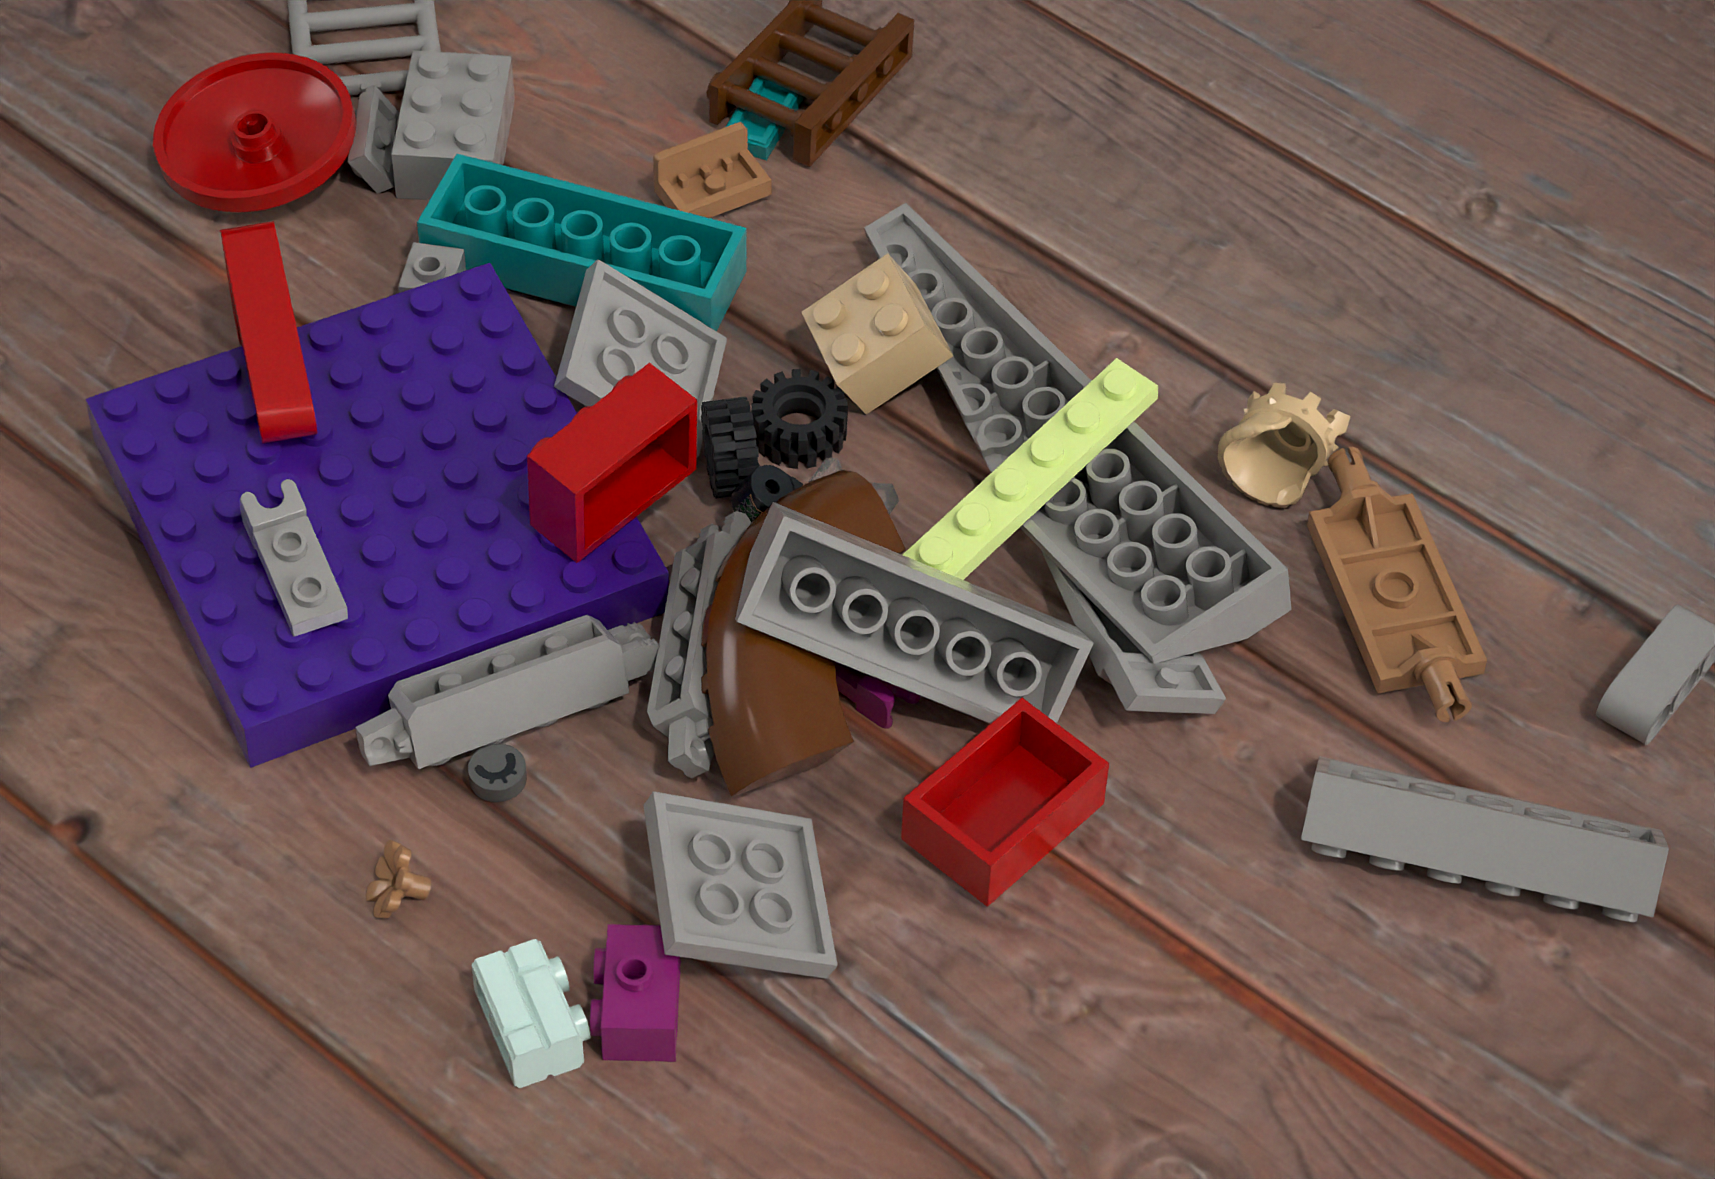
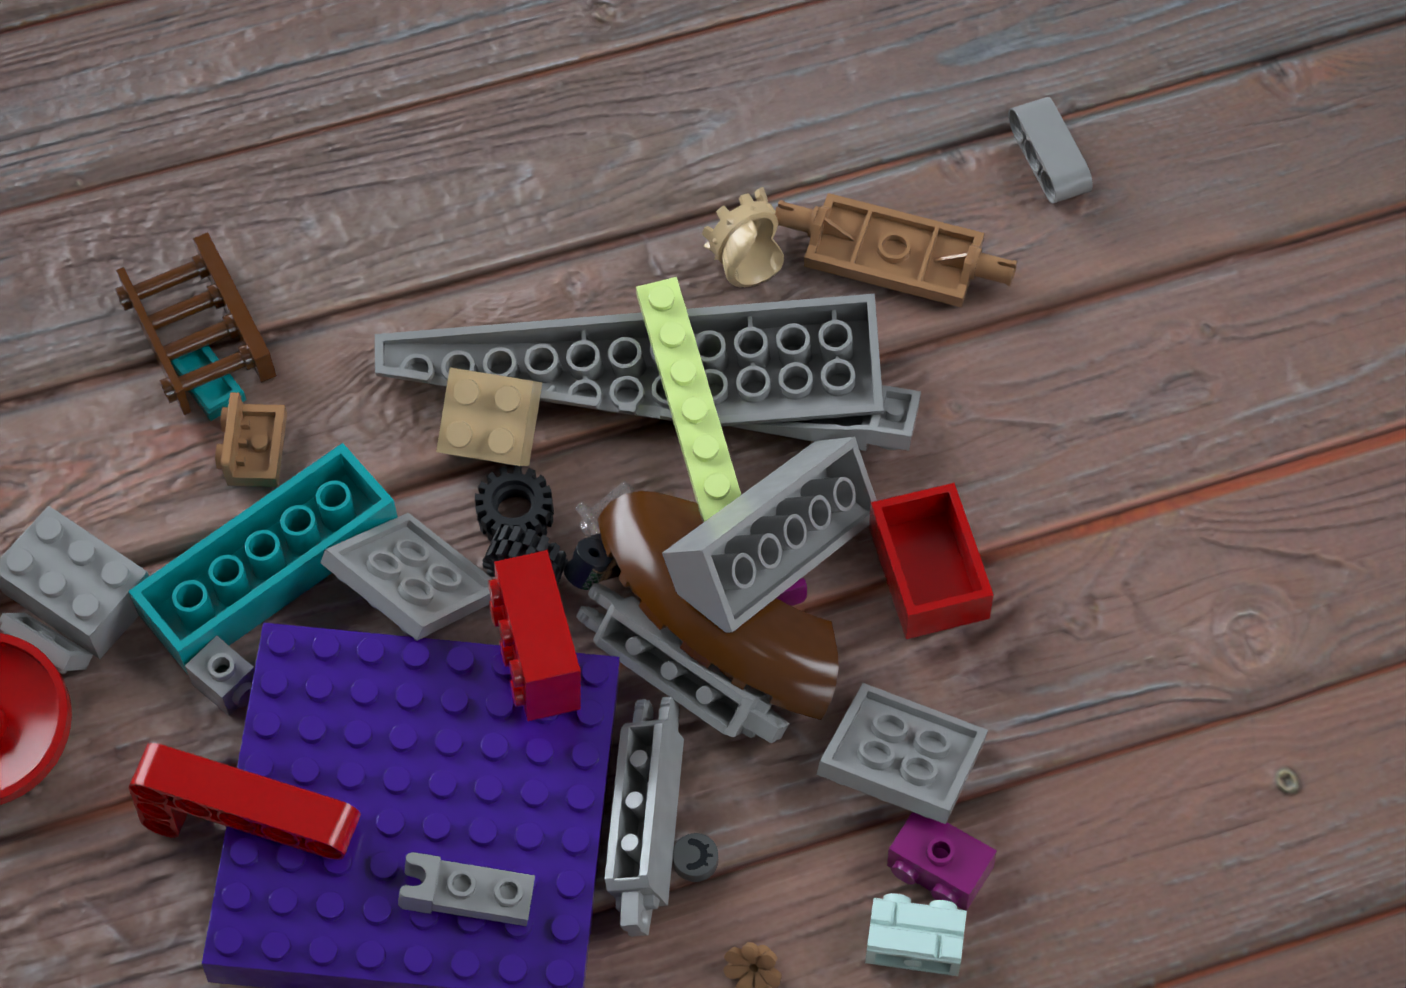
camera: 55 degrees left, 10 degrees up
(1485, 838) = (1109, 316): light grey slope -> none

